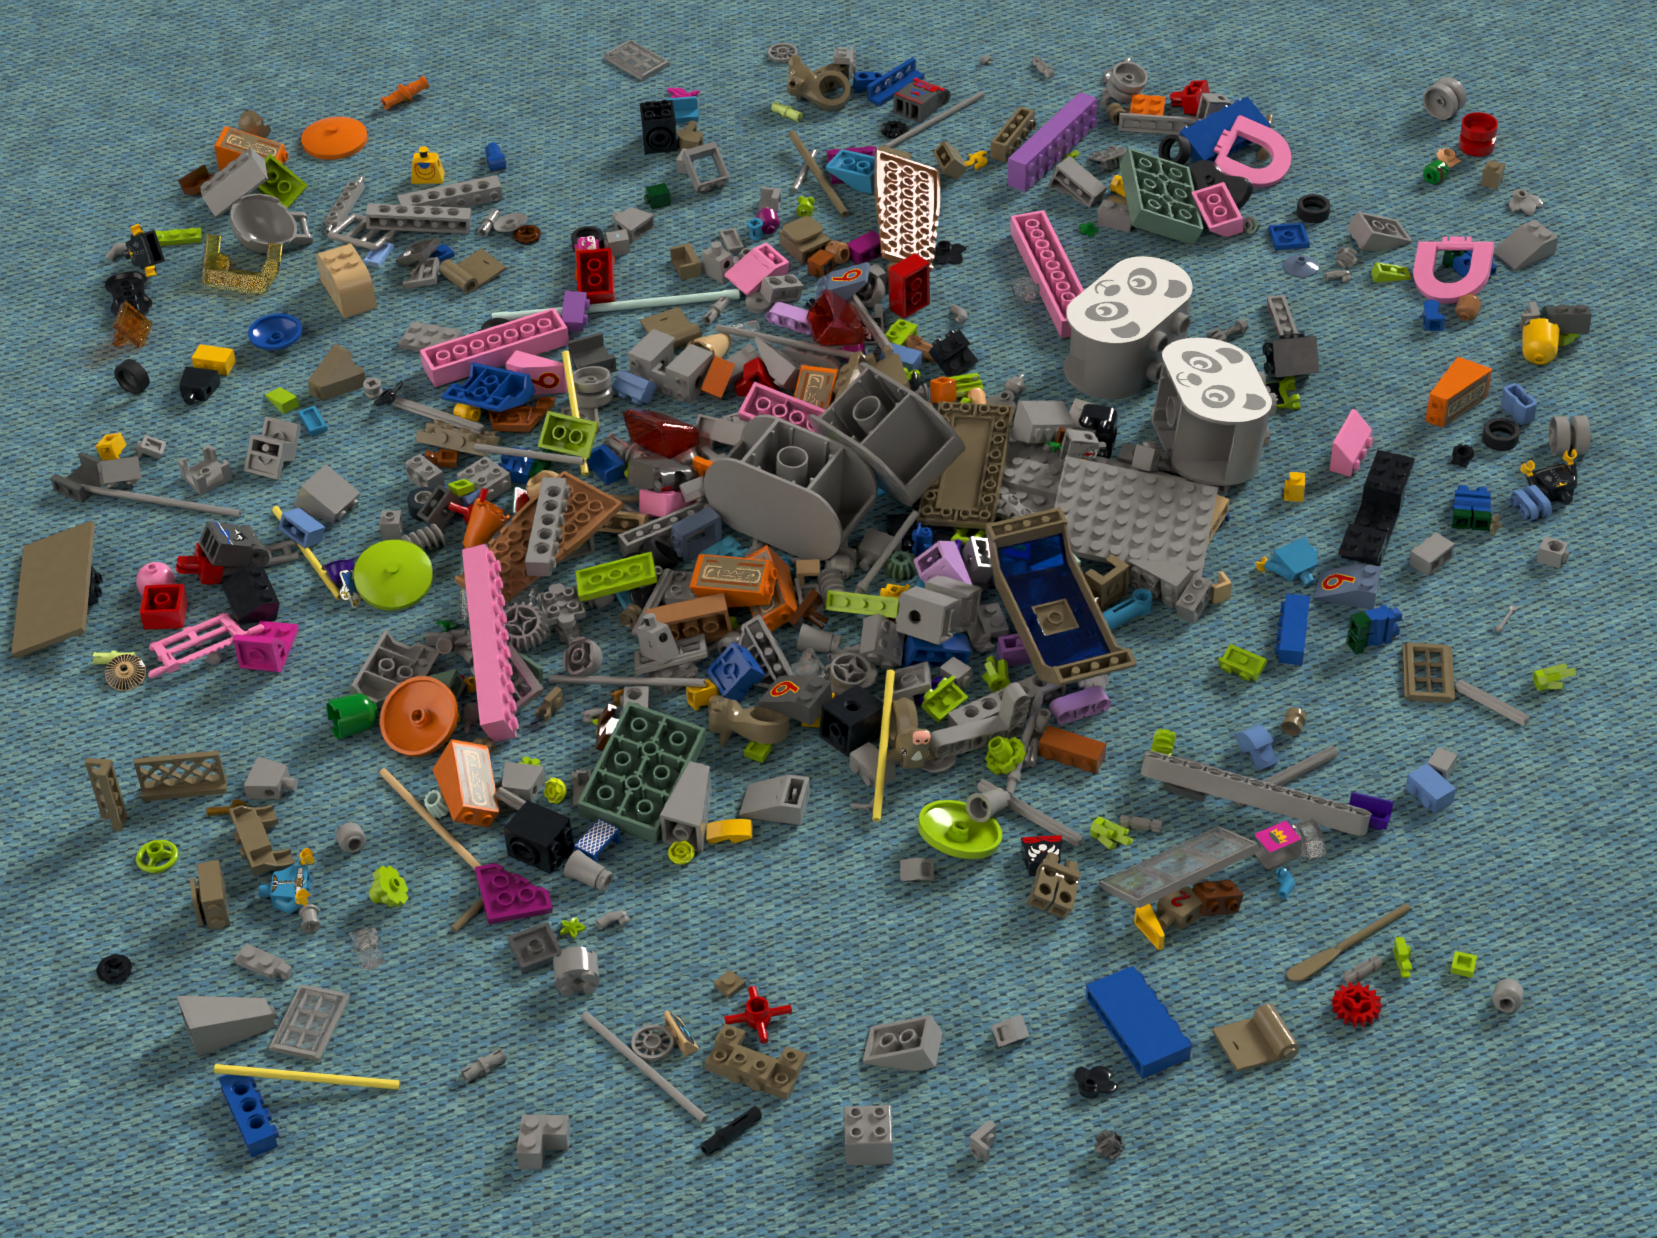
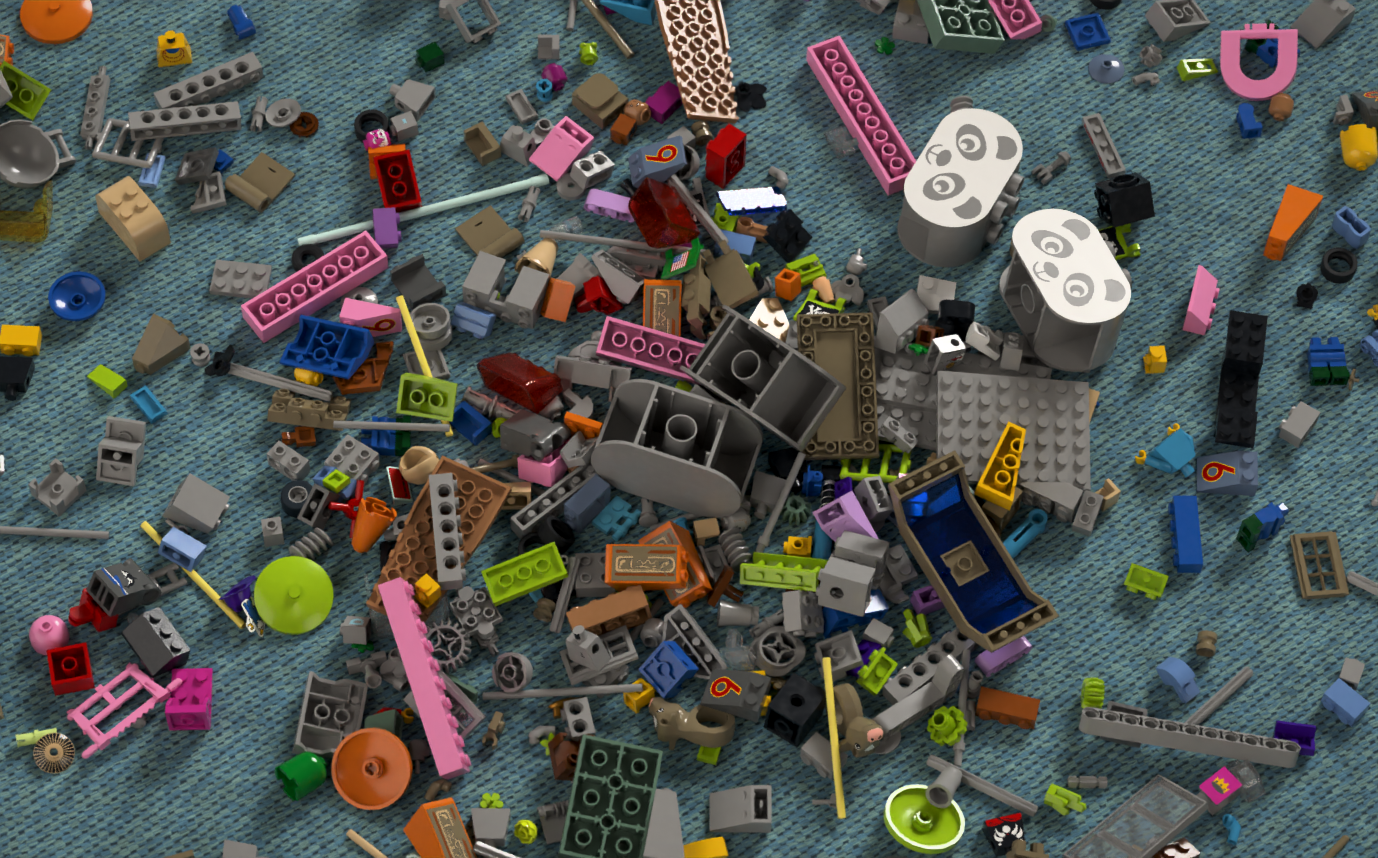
camera: 15 degrees left, 15 degrees up
(443, 608) = (356, 630): none -> light grey brick
(513, 571) = (427, 591): none -> yellow brick
(835, 357) = (682, 262): none -> green flag
(923, 324) = (752, 201): none -> windscreen
(1108, 542) = (1001, 472): none -> yellow wedge
(1120, 444) = (984, 340): none -> white slope

